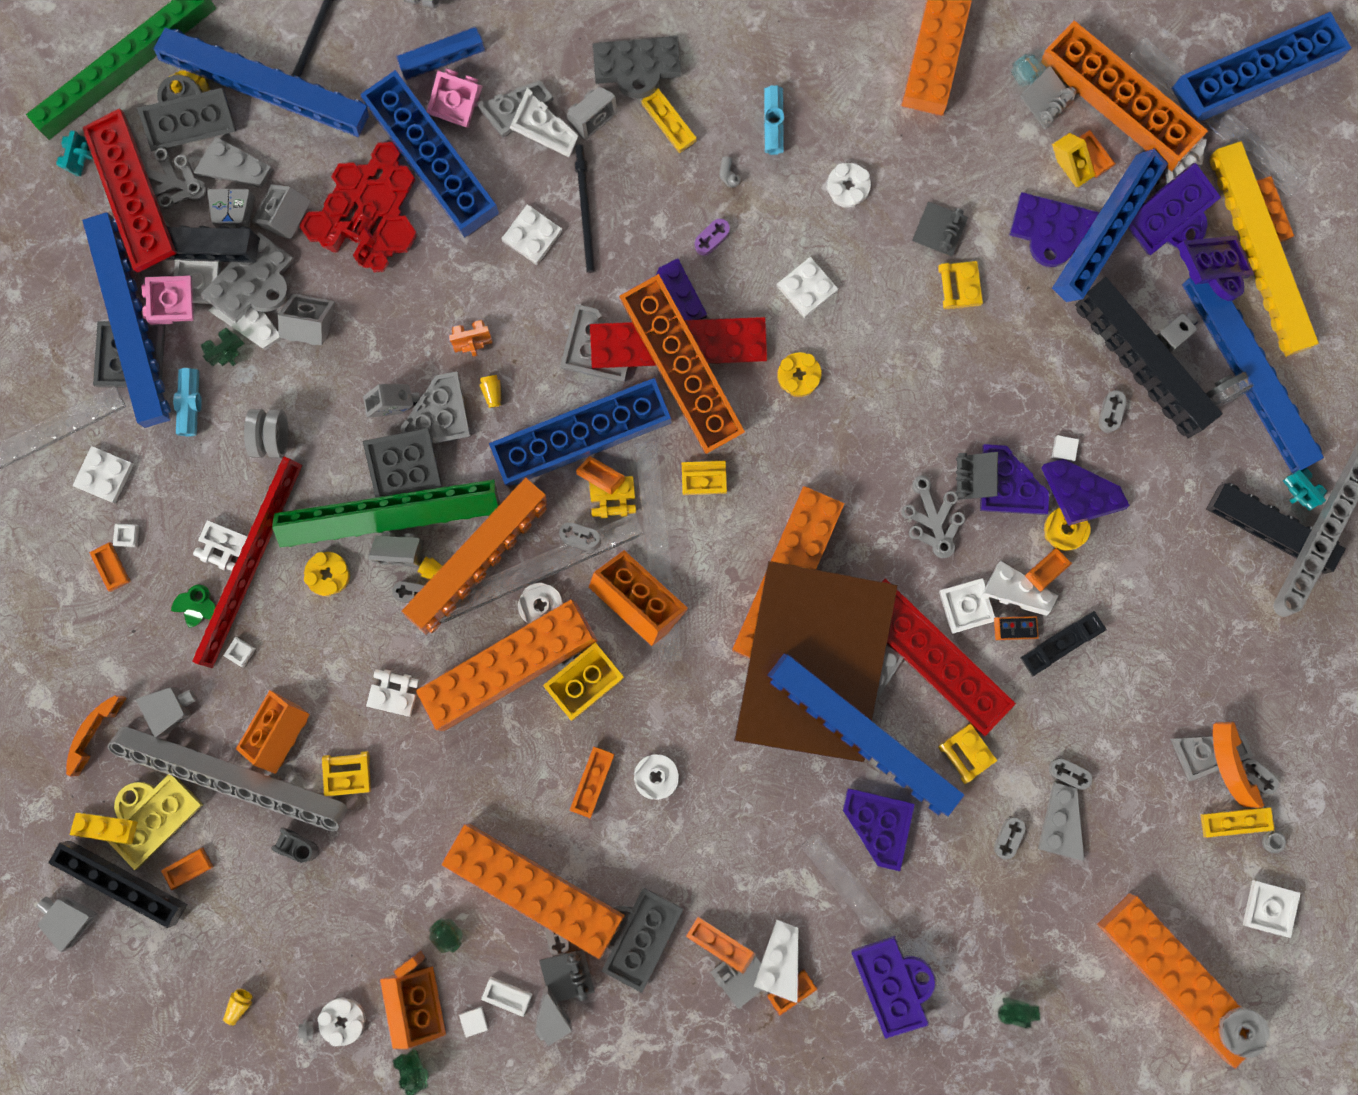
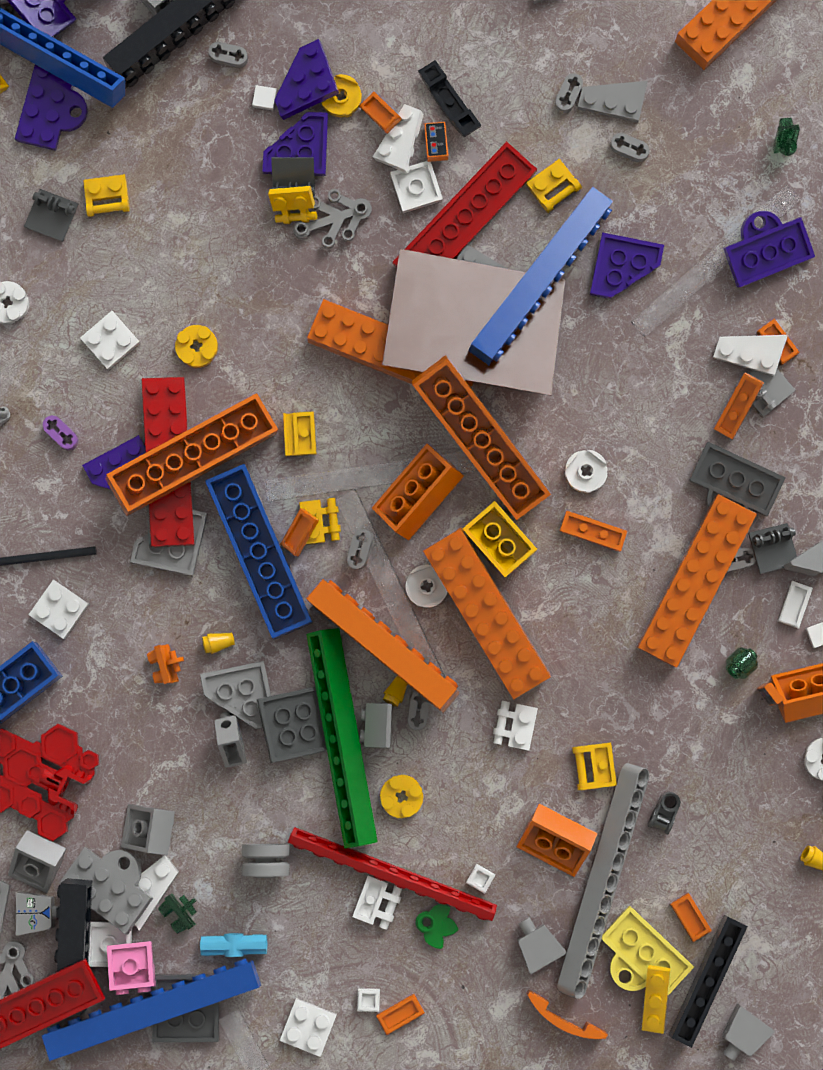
camera: 95 degrees left, 0 degrees up
(689, 663) = (480, 437): none -> orange brick
(953, 474) = (293, 199): none -> yellow plate

